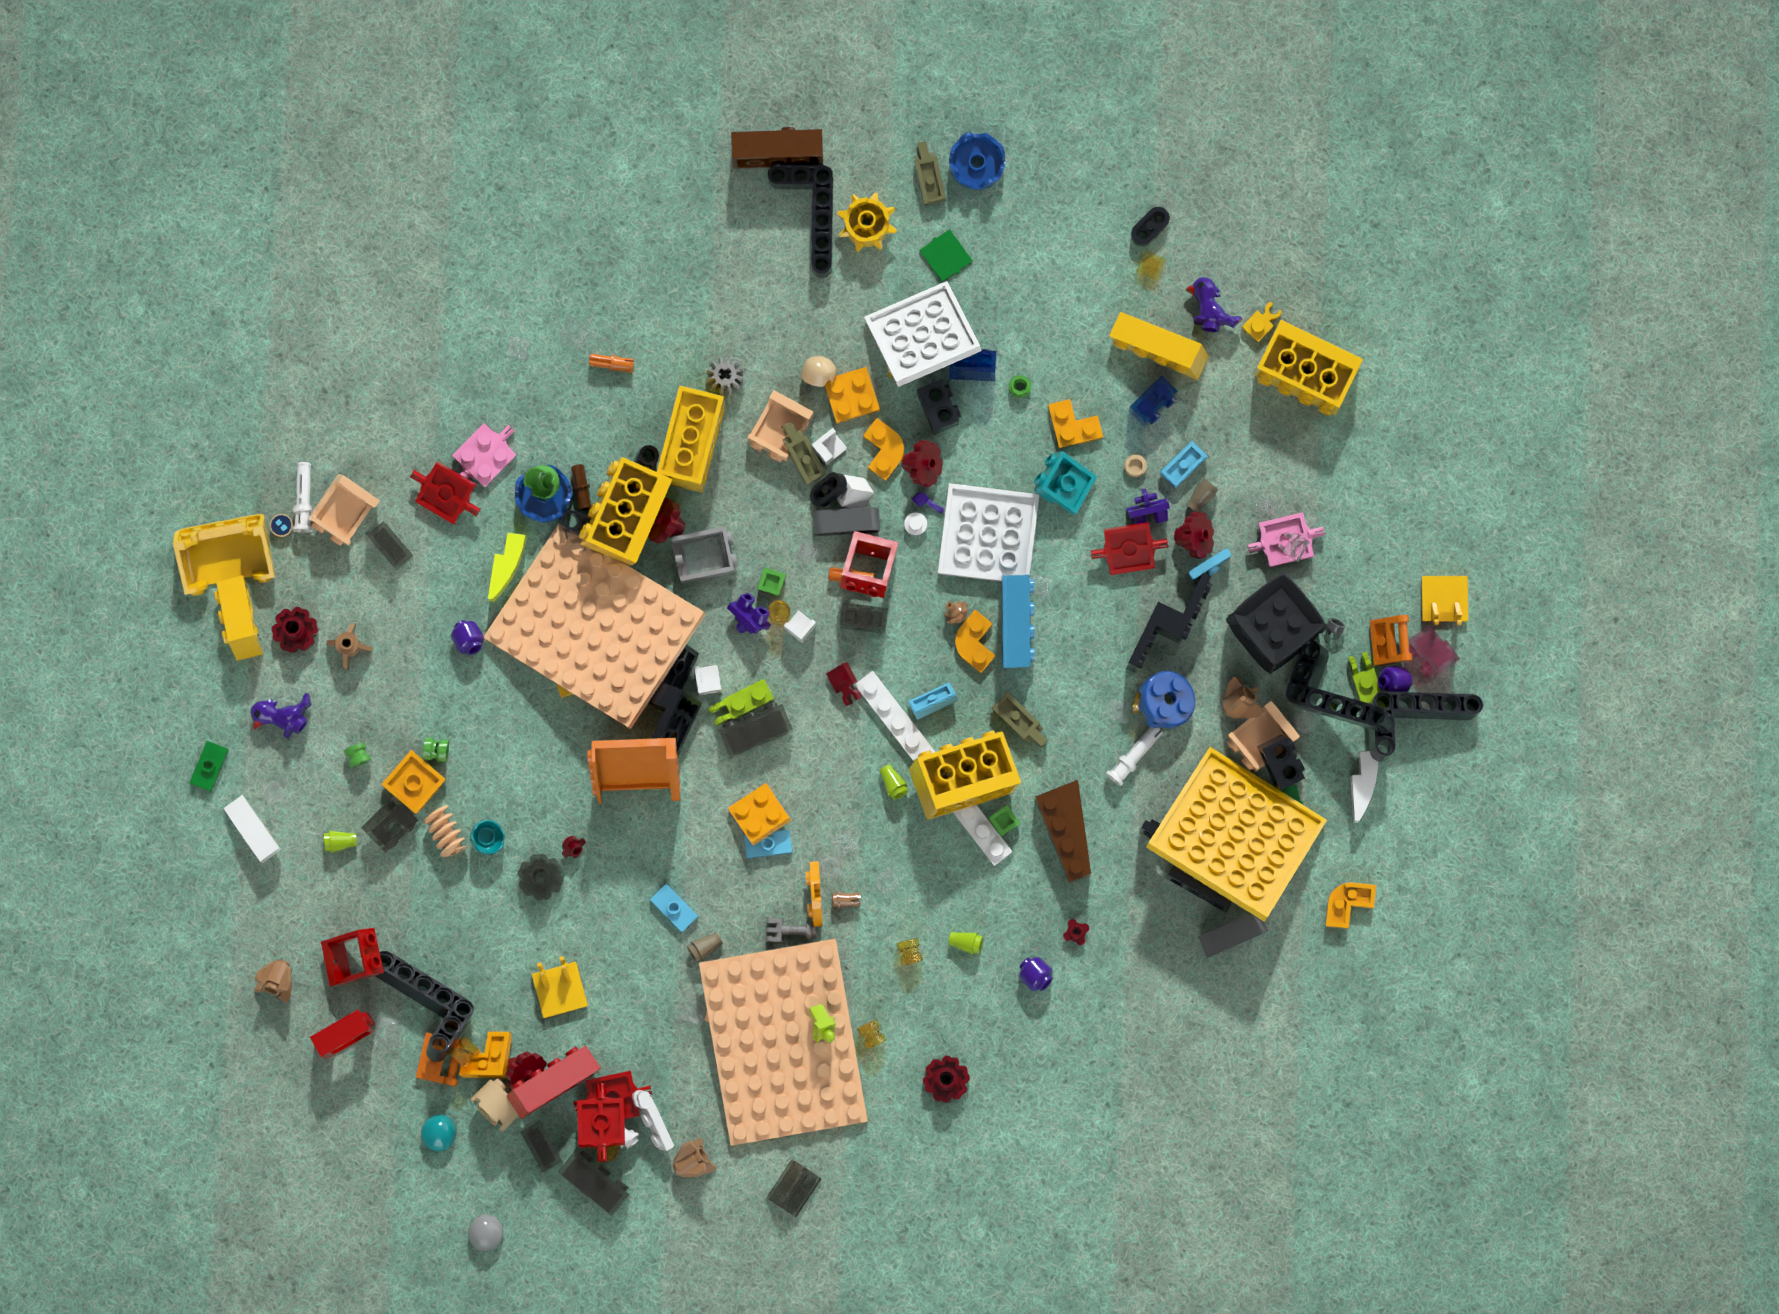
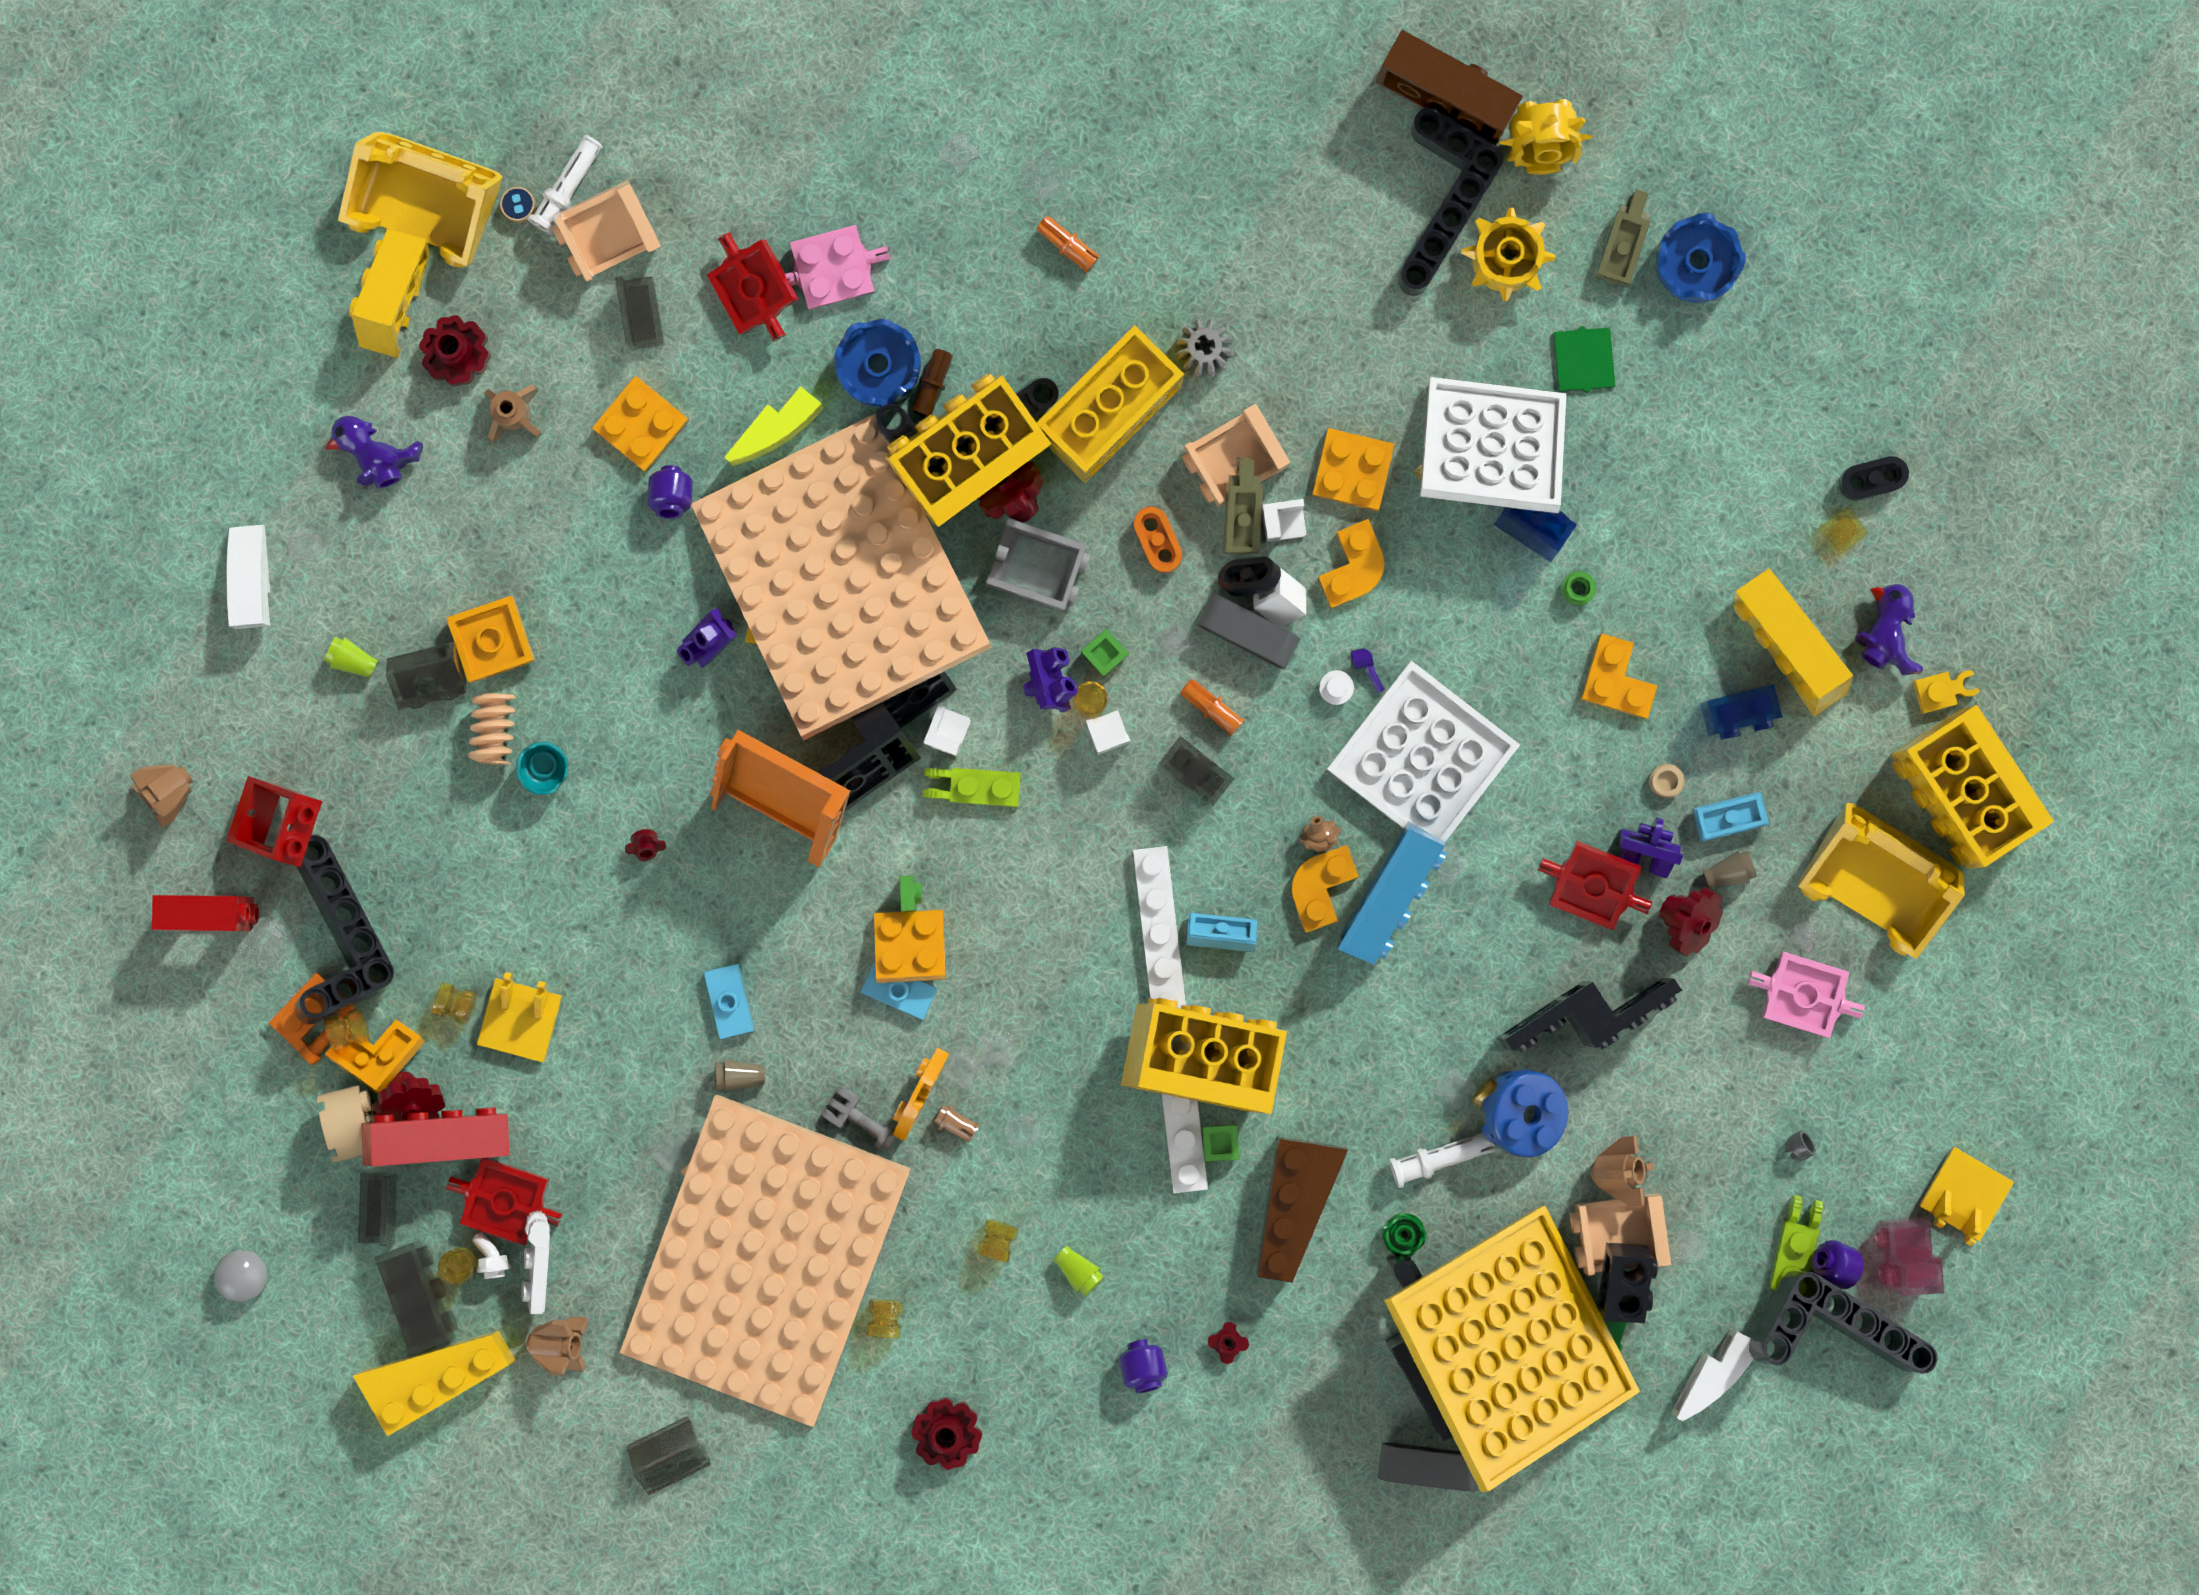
camera: 25 degrees right, 5 degrees up
(209, 766) = (242, 462): green plate -> none
(357, 755) = (438, 561): bright green wheel -> none
(426, 609) = (640, 424): none -> light orange plate
(431, 751) = (543, 614): bright green wheel -> none
(438, 1132) = (256, 1111): teal hair -> none
(521, 1000) = (454, 1003): none -> clear yellow wheel
(539, 708) = (707, 639): none -> dark purple hips
(540, 877) = (581, 859): clear smoke plant -> none
(542, 481) = (884, 345): bright green hair -> none
(601, 1122) = (466, 1228): red plate -> none
(629, 1226) = (420, 1383): none -> yellow wedge
(741, 783) = (910, 893): none -> bright green plate
(755, 729) = (969, 833): clear smoke brick -> none
(764, 499) = (1158, 540): none -> orange plate
(818, 371) = (1328, 413): tan hair -> none
(823, 1024) = (825, 1277): lime piece -> none
(842, 681) = (1121, 834): dark red plate -> none
(848, 143) = (1545, 136): none -> yellow brick
(873, 547) = (1263, 686): red window -> none
(893, 782) = (1107, 1008): lime cone -> none
(923, 463) = (1393, 615): dark red plant -> none
(934, 408) = (1449, 550): black brick -> none
(1019, 719) = (1319, 1023): olive hinge -> none
(1064, 482) = (1562, 748): teal plate -> none
(1139, 803) = (1415, 1234): none -> green plate
(1209, 566) = (1686, 970): medium azure plate -> none
(1276, 623) = (1730, 1101): black piece -> none
(1290, 448) = (1884, 879): none -> yellow windscreen
(1295, 546) = (1814, 1013): clear tile -> none
(1330, 701) = (1739, 1243): black beam -> none
(1343, 898) = (1600, 1506): light orange plate -> none
(1384, 640) = (1855, 1203): orange plate -> none

